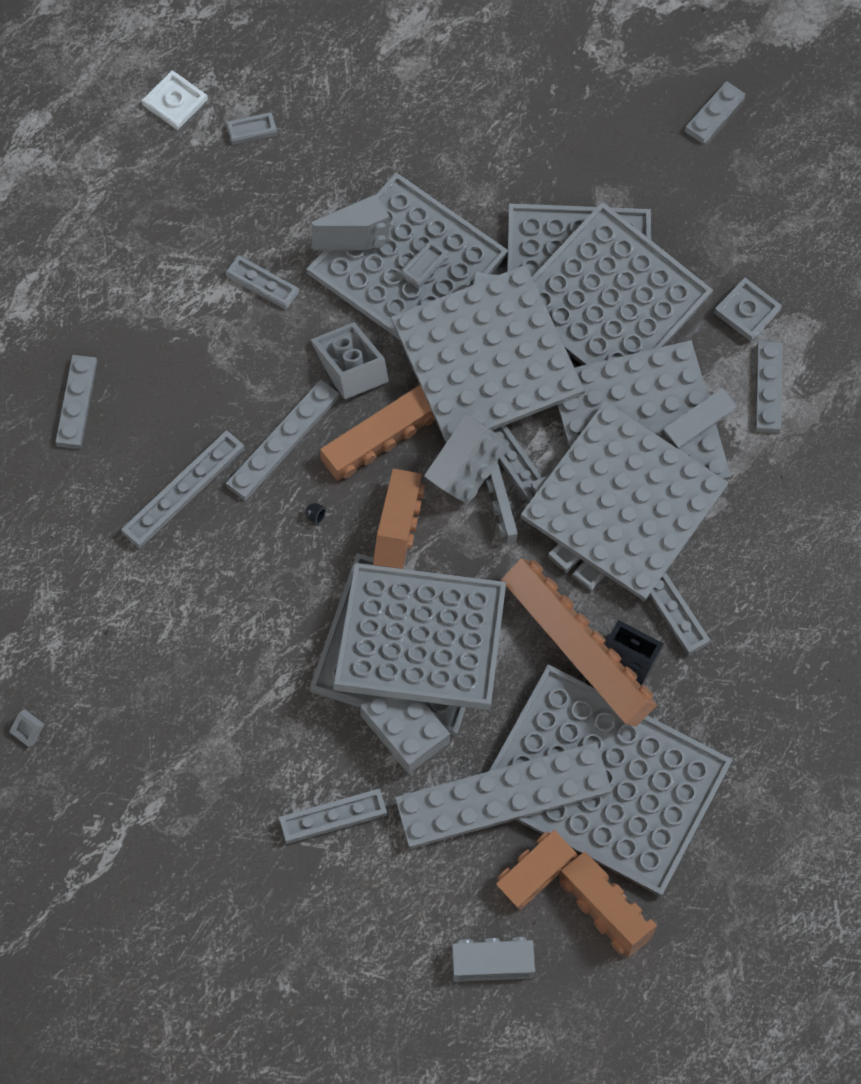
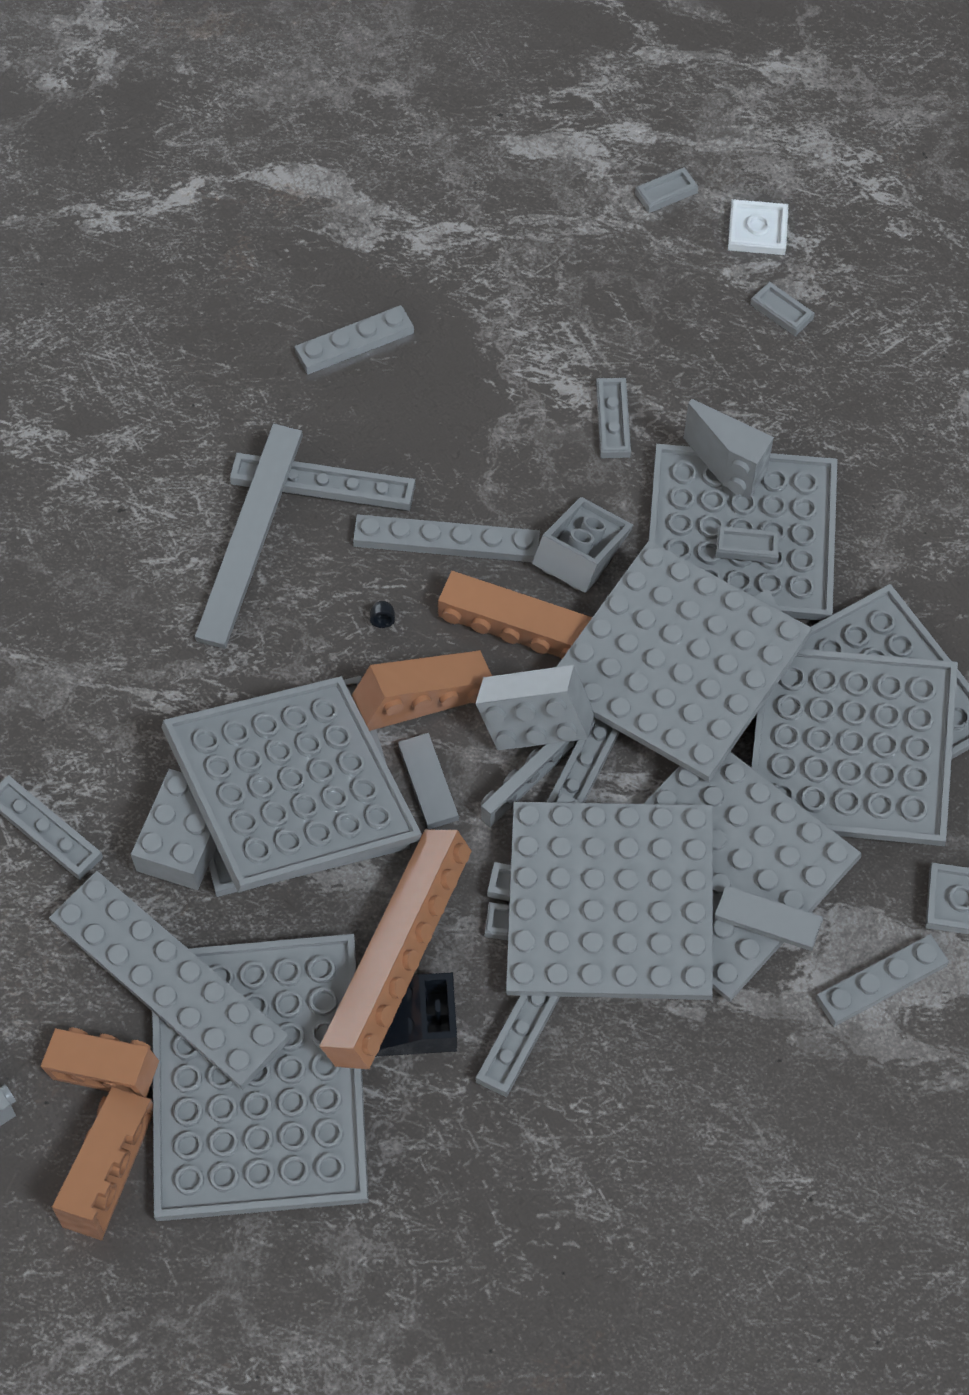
camera: 60 degrees right, 5 degrees down
(100, 134) = (666, 190): none -> light grey tile
(196, 559) = (248, 536): none -> light grey tile
(459, 559) = (428, 781): none -> light grey tile

